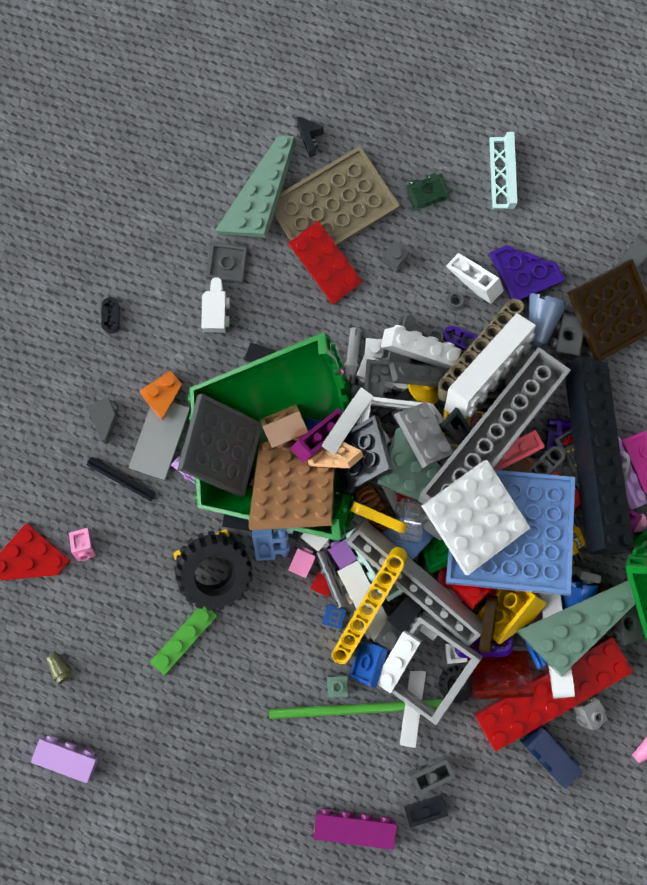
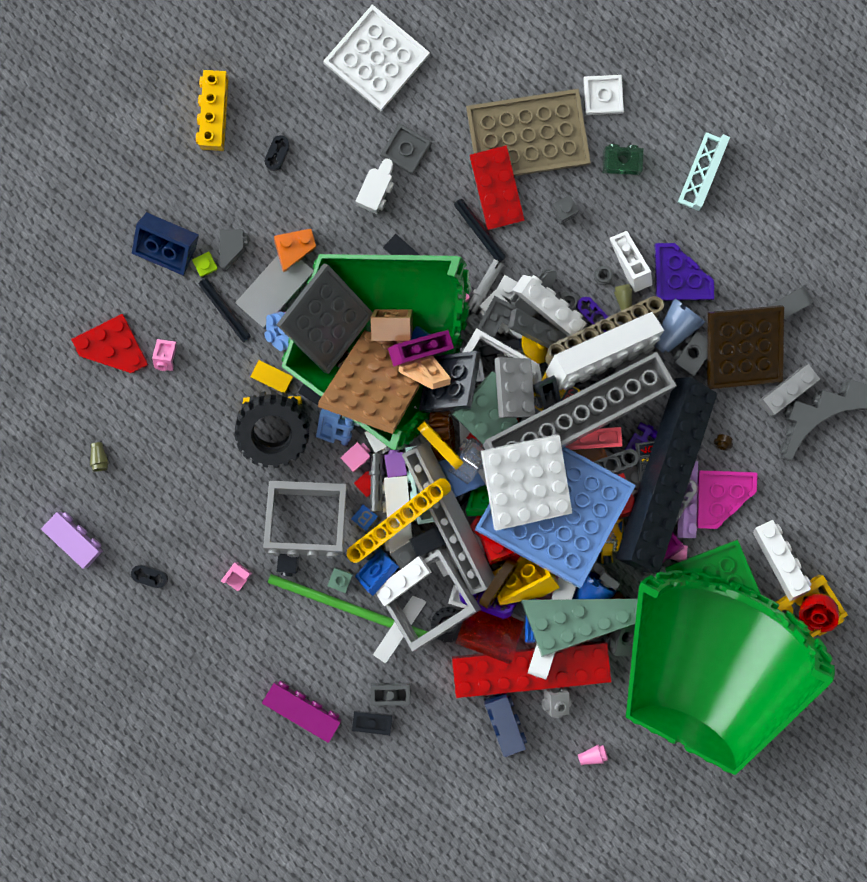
camera: 25 degrees right, 5 degrees up
(35, 301) = (213, 110): none -> yellow brick
(39, 441) = (164, 243): none -> dark blue slope
(85, 444) = (205, 264): none -> lime plate
(154, 767) = (147, 580): none -> black beam
(165, 193) = (376, 58): none -> white plate
(178, 480) = (274, 333): none -> medium blue plate
(183, 639) = (220, 479): bright green plate -> none
(191, 522) = (271, 376): none -> yellow tile
(237, 725) = (236, 576): none -> bright pink panel
(256, 203) = (459, 101): sand green wing -> none
(268, 613) = (309, 489): none -> light grey window
(280, 690) = (287, 565): none -> black brick
(308, 132) = (536, 54): black slope -> none
(325, 307) = (479, 230): none -> black axle
(347, 421) = (450, 345): white sticker -> none
(384, 142) = (603, 95): none -> white tile
(482, 312) = (624, 296): none -> olive cone
(632, 404) = (723, 442): none -> dark brown plate

